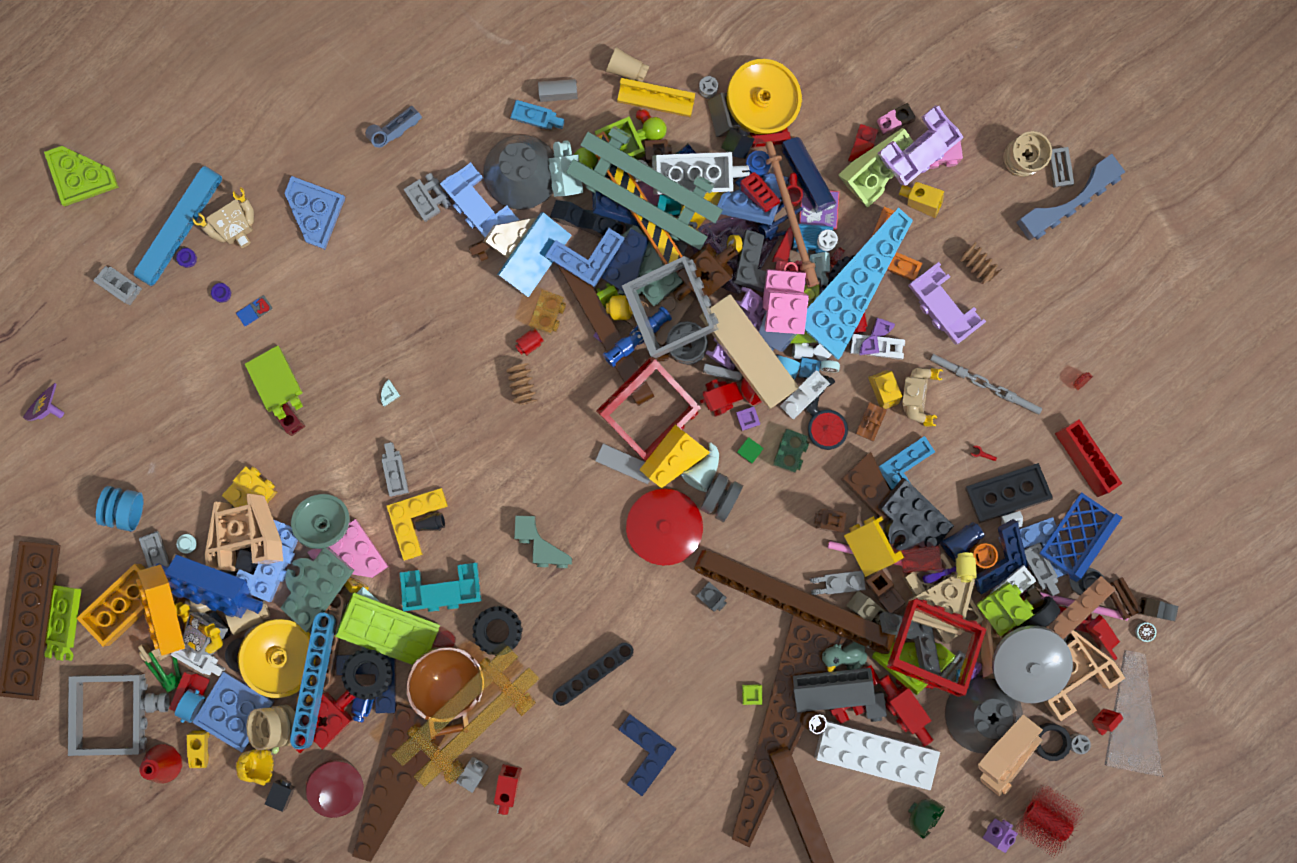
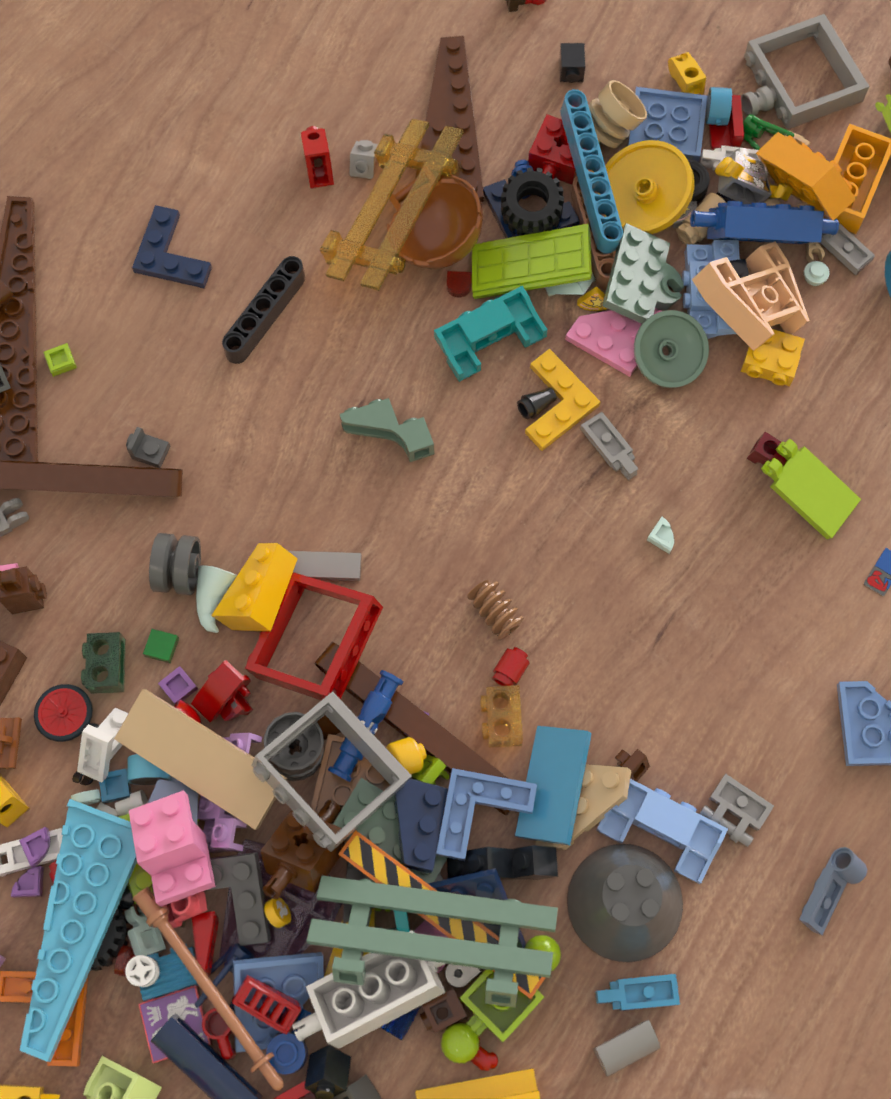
camera: 165 degrees right, 15 degrees down
(161, 764) = (721, 41): red cone -> none
(255, 766) = (617, 68): yellow hair -> none
(334, 788) = (514, 88): dark red piece -> none
(485, 618) = (400, 293): black tyre -> none
(563, 183) = (571, 923): light aqua brick -> none
(664, 527) = (239, 507): red dish -> none
(722, 372) = (244, 726): light grey tile -> none

